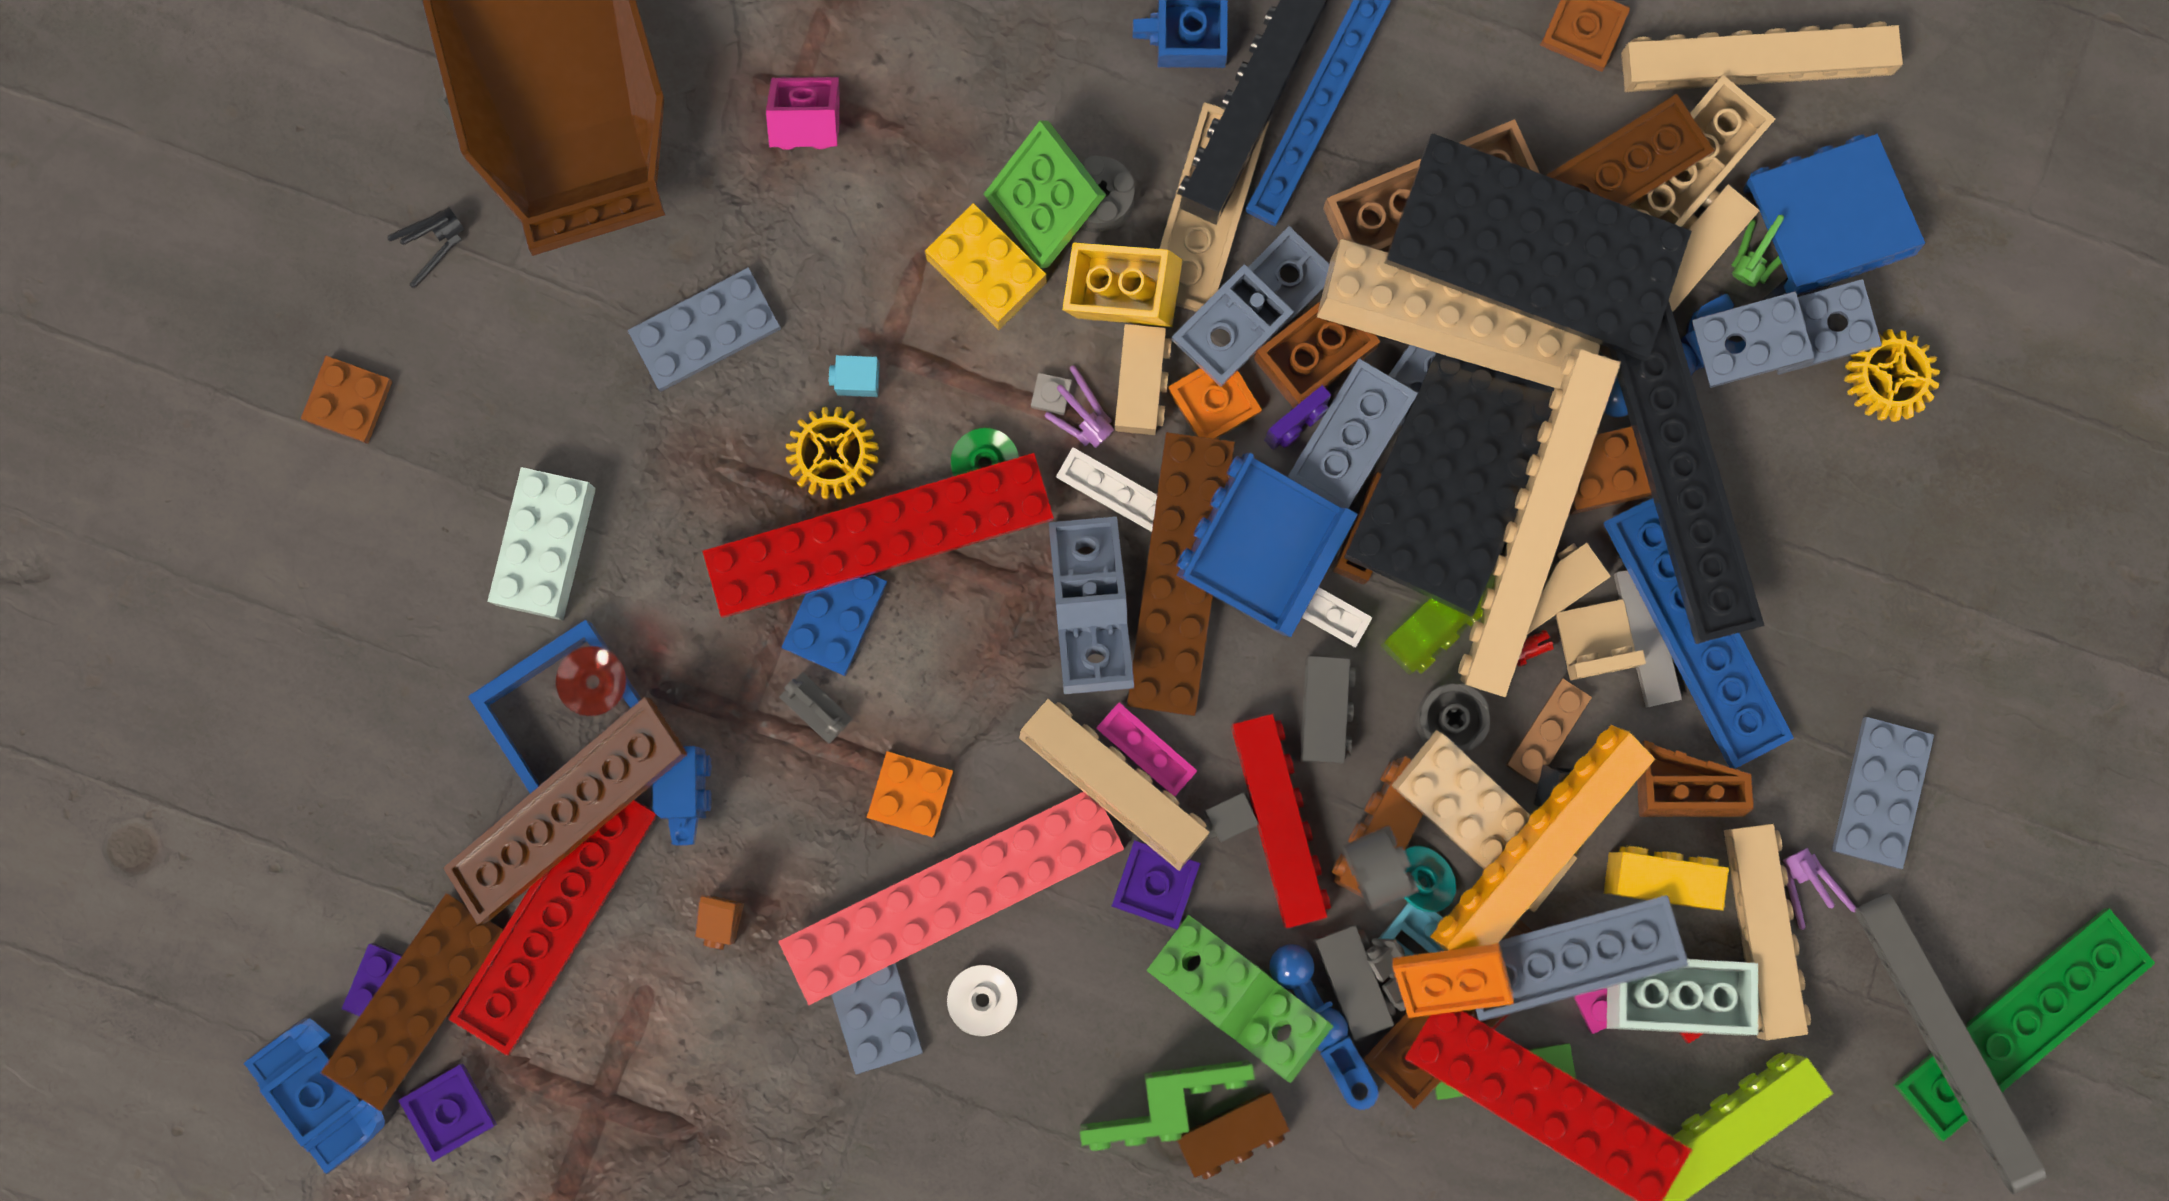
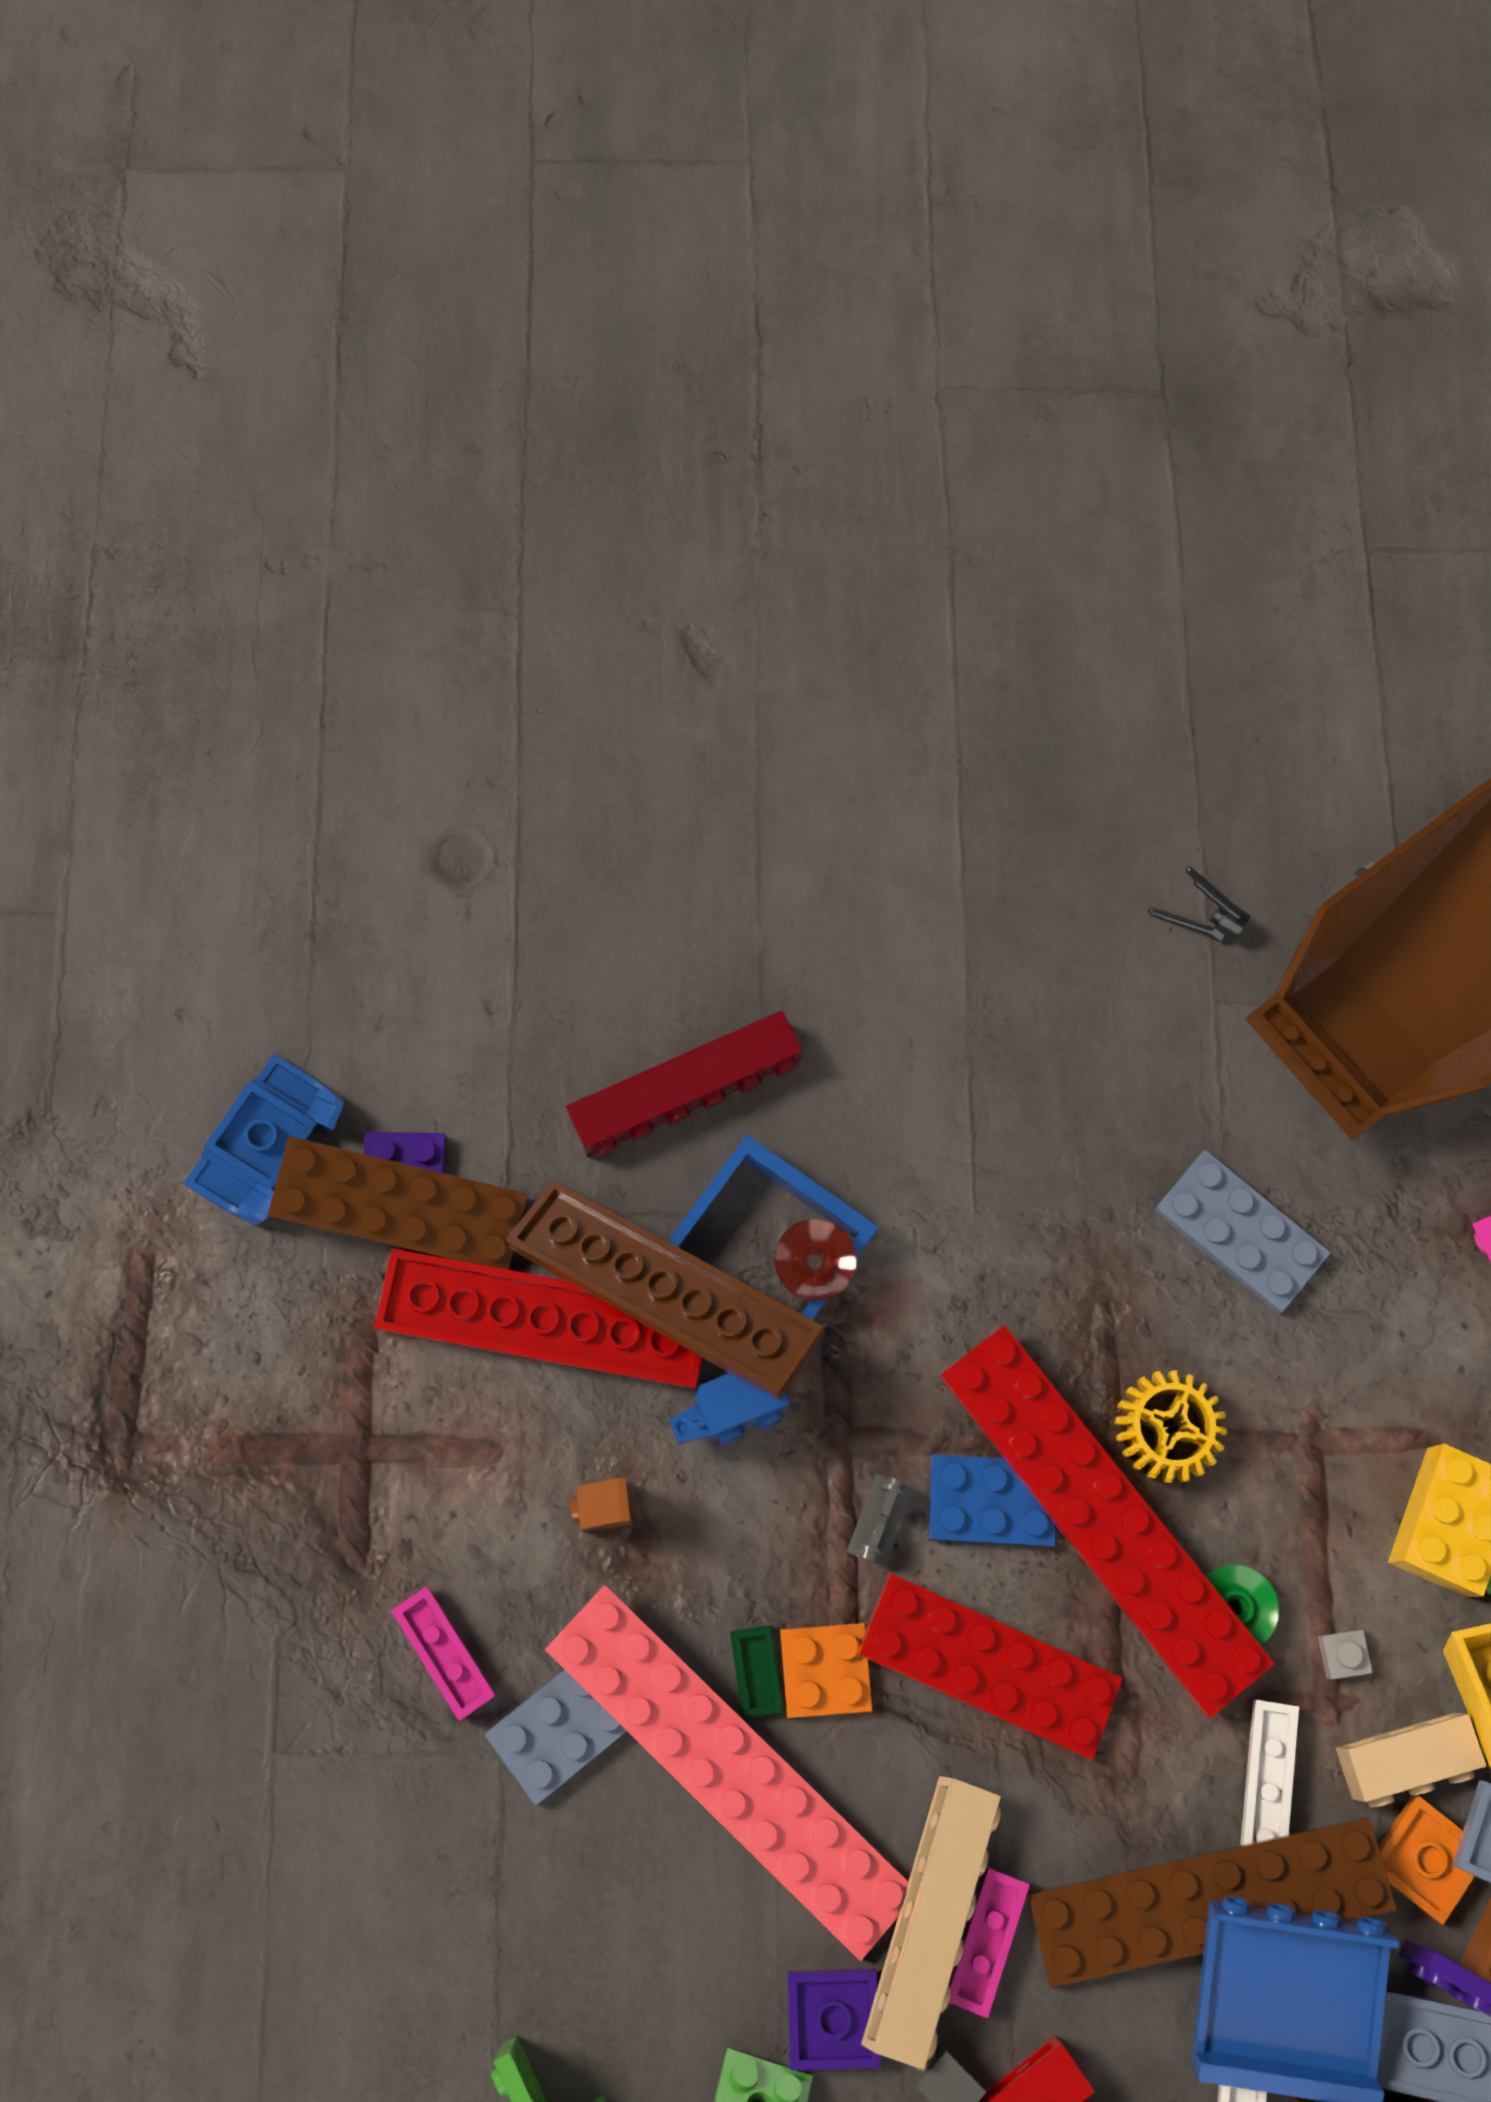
camera: 65 degrees right, 10 degrees down
(346, 399) = (1004, 891): dark orange plate -> none
(406, 730) = (684, 1084): none -> dark red brick
(447, 1112) = (290, 1287): dark purple plate -> none
(541, 543) = (939, 1148): light aqua brick -> none
(782, 1085) = (443, 1653): none -> dark pink plate
(855, 376) = (1266, 1418): medium azure brick -> none
(890, 847) = (757, 1672): none -> dark green tile
(953, 668) = (989, 1666): none -> red plate
(966, 1011) = (615, 1879): white dish -> none
(1091, 605) = (1128, 1806): sand blue bracket -> none
(1094, 427) = (1335, 1724): medium lavender plant -> none

